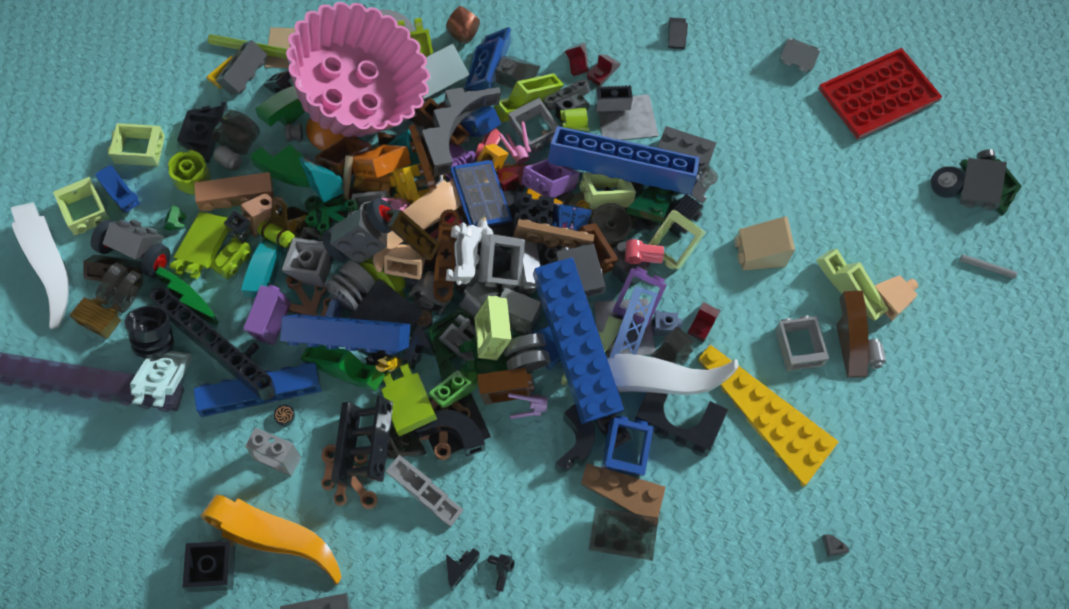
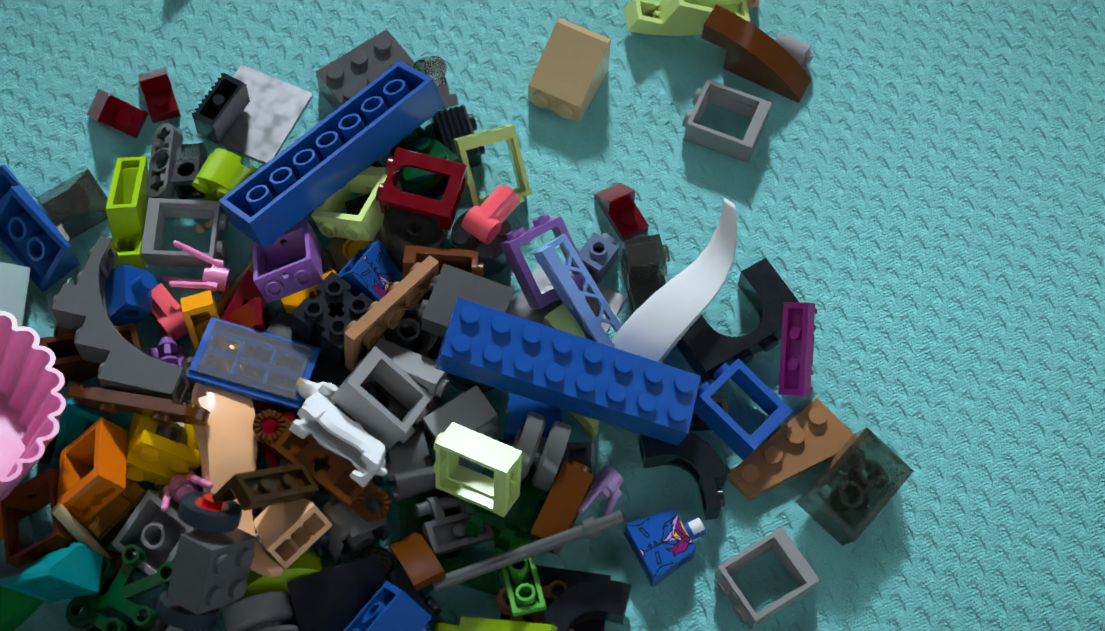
camera: 55 degrees left, 0 degrees up
(430, 332) = (417, 561): none -> reddish brown slope
(495, 400) = (590, 528): none -> dark grey bar
(523, 451) = (663, 543): none -> blue torso
(543, 381) = (582, 453): none -> dark grey tile
(547, 500) = (792, 561): none -> light grey window
(637, 228) = (442, 210): none -> dark red panel
(683, 457) = (797, 349): none -> magenta plate
(789, 432) = (824, 212): yellow wing -> none
(834, 546) = (1000, 257): dark grey tile -> none

